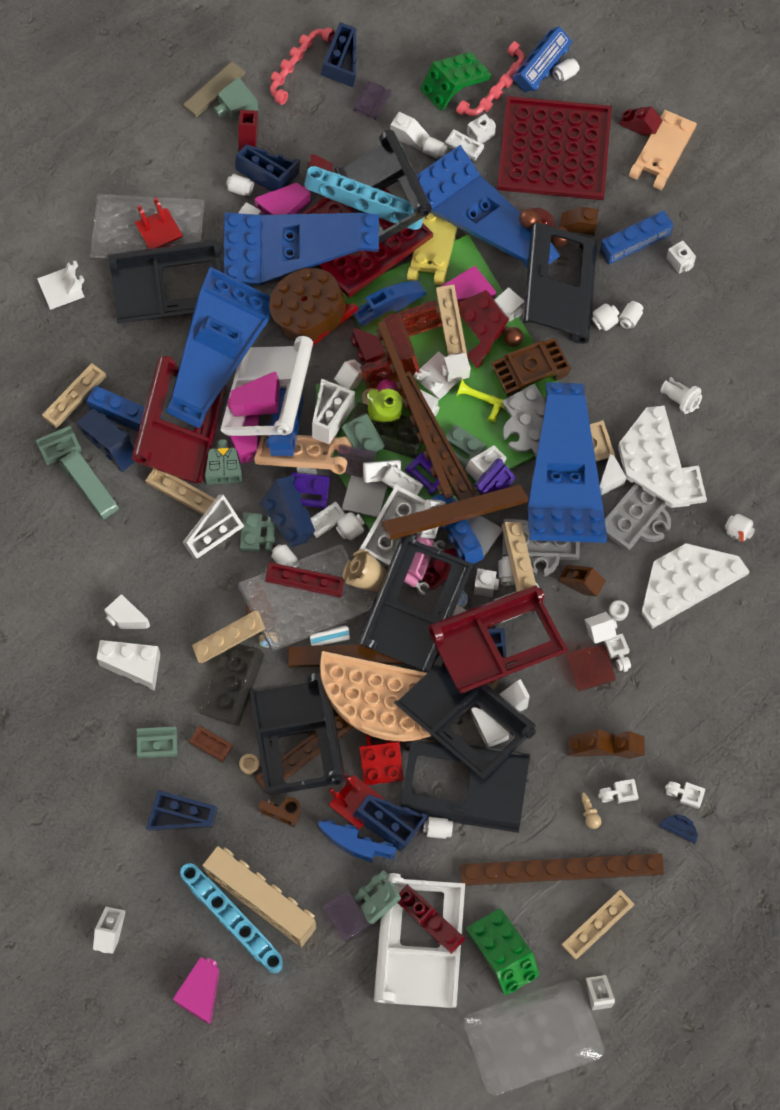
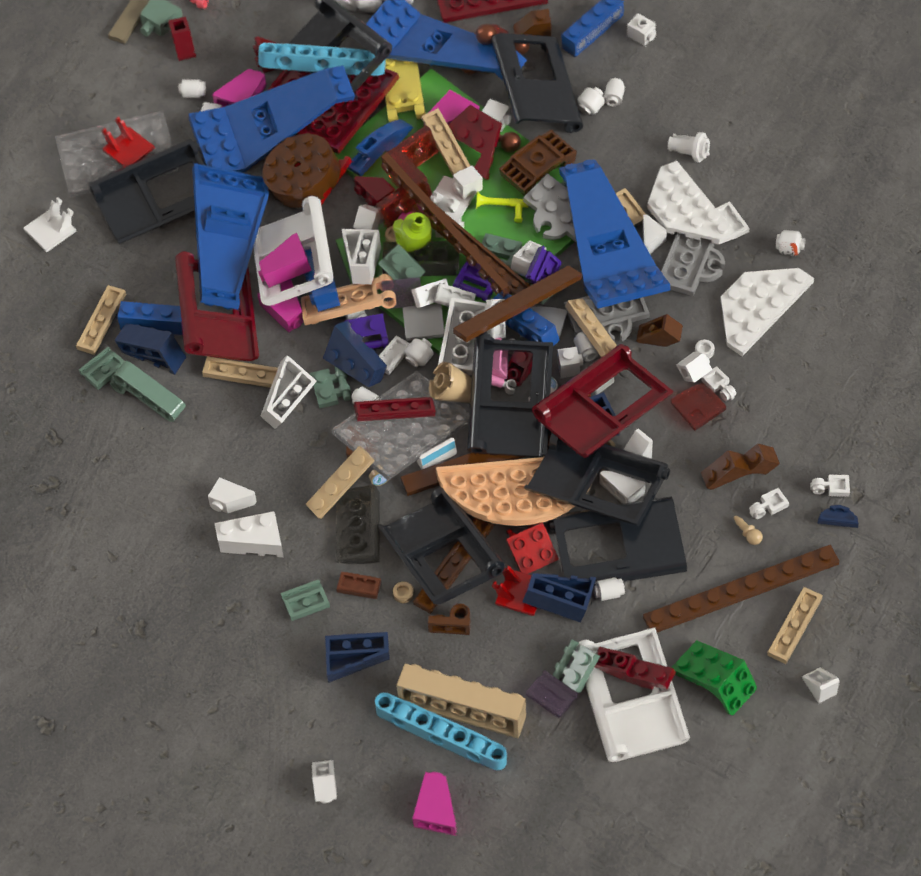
camera: 15 degrees left, 10 degrees down
(223, 465) = (274, 336): sand green torso -> none
(265, 168) = (212, 66): dark blue wedge -> none
(347, 840) = (525, 627): blue slope -> none
(533, 1036) = (772, 743): clear wedge -> none

